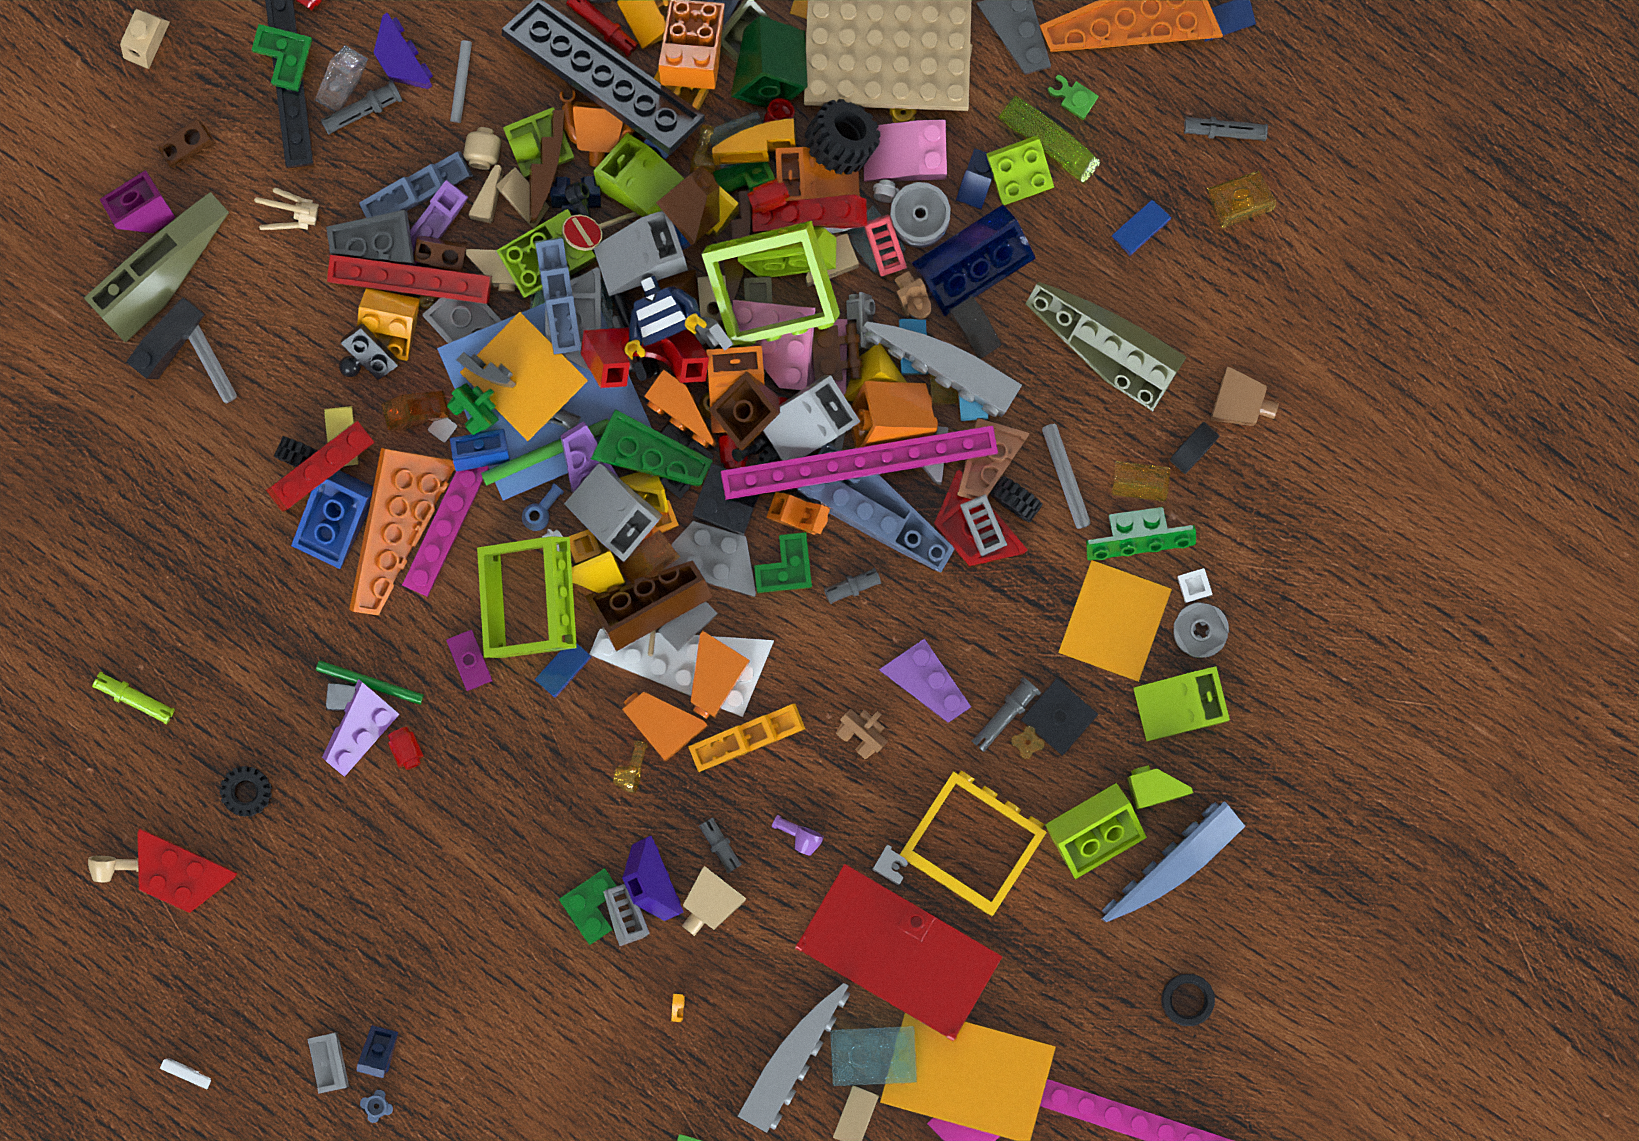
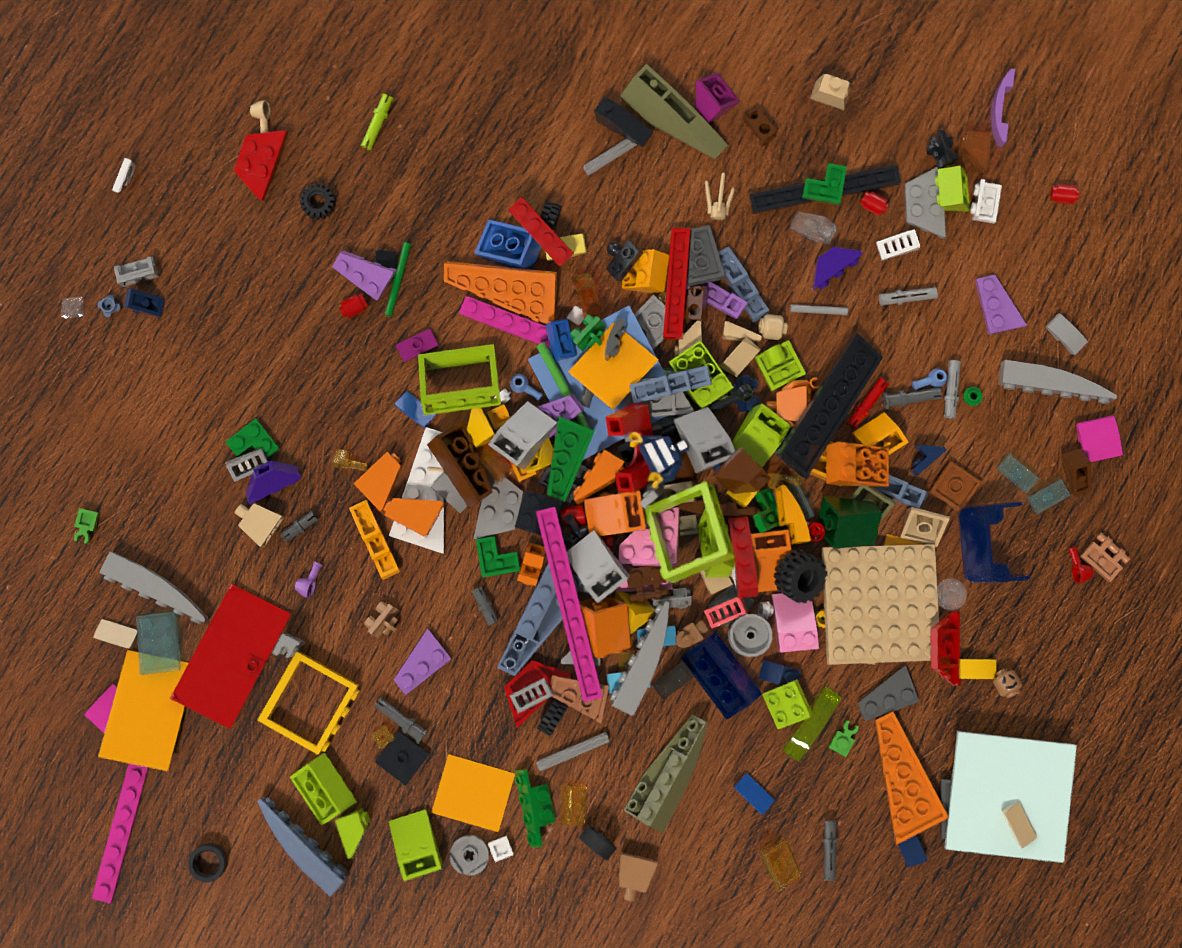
camera: 85 degrees right, 0 degrees up
(372, 102) = (799, 250): dark grey pin -> none
(542, 174) = (757, 369): reddish brown slope -> none
(585, 232) = (716, 400): piece -> none
(678, 1007) = (186, 505): light orange tile -> none
(746, 409) = (599, 521): reddish brown slope -> none
(768, 196) = (752, 526): red brick -> none

